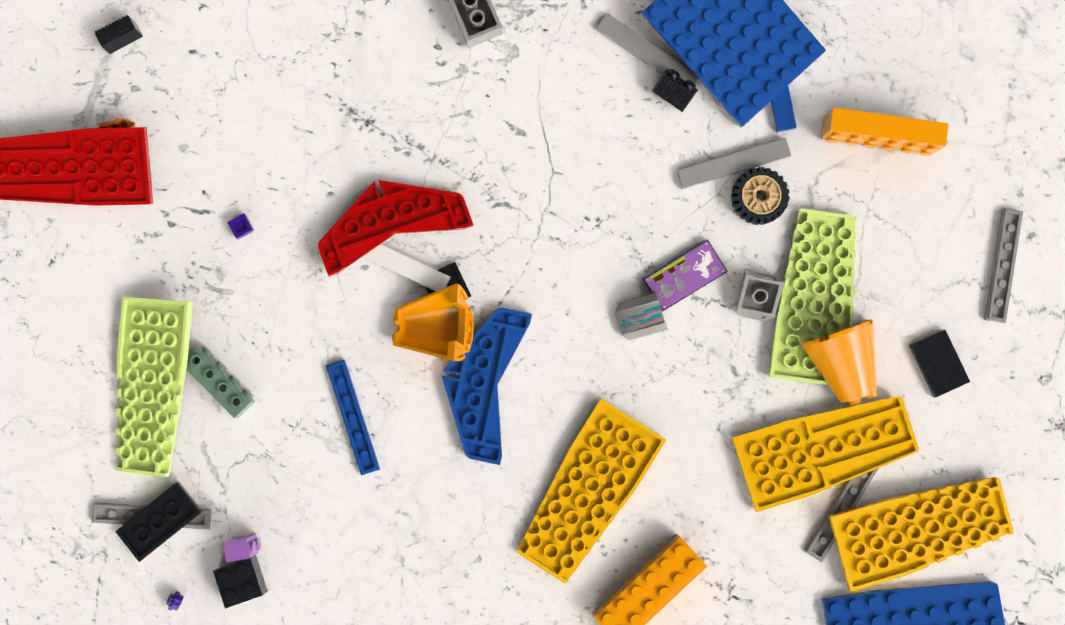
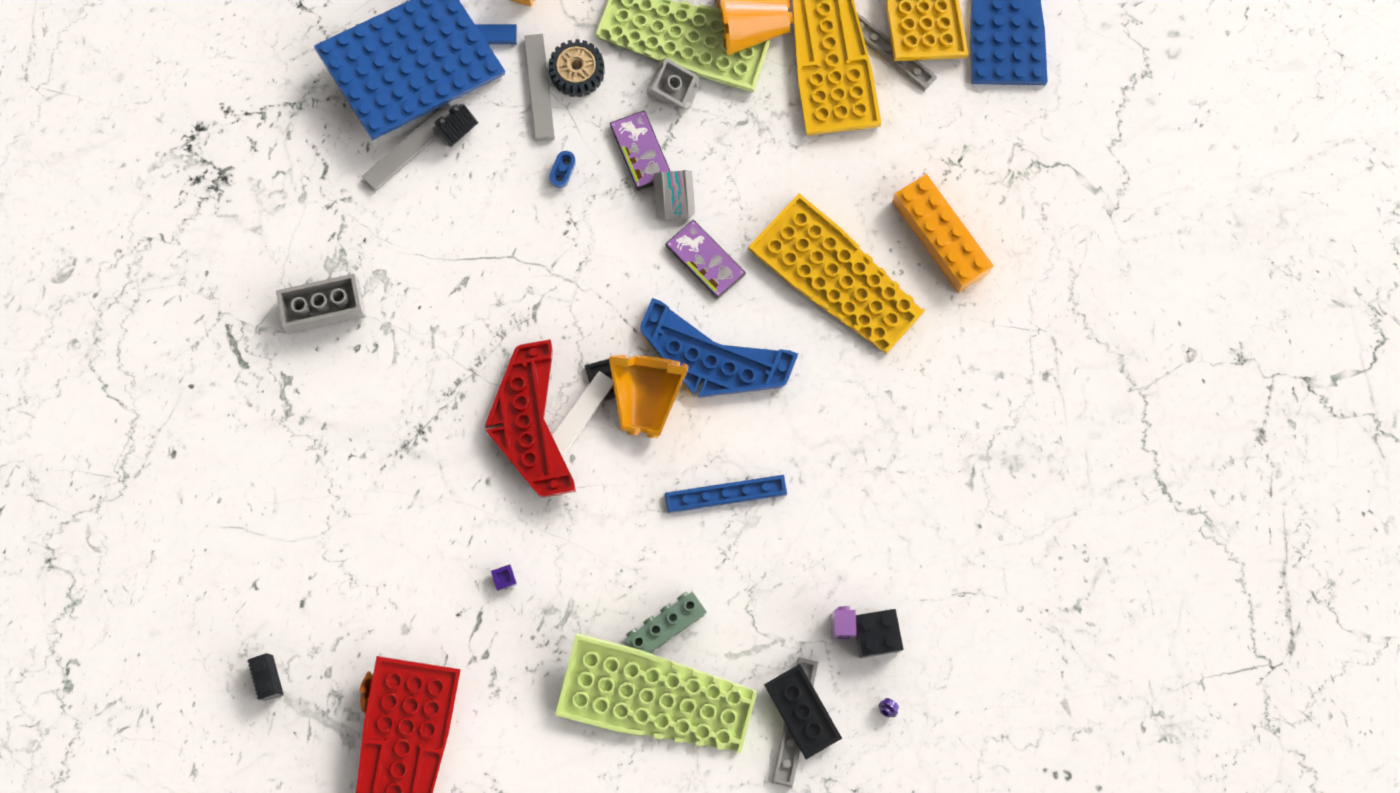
camera: 80 degrees left, 10 degrees down
(582, 358) = (705, 259): none -> tile
(650, 200) = (562, 170): none -> blue plate

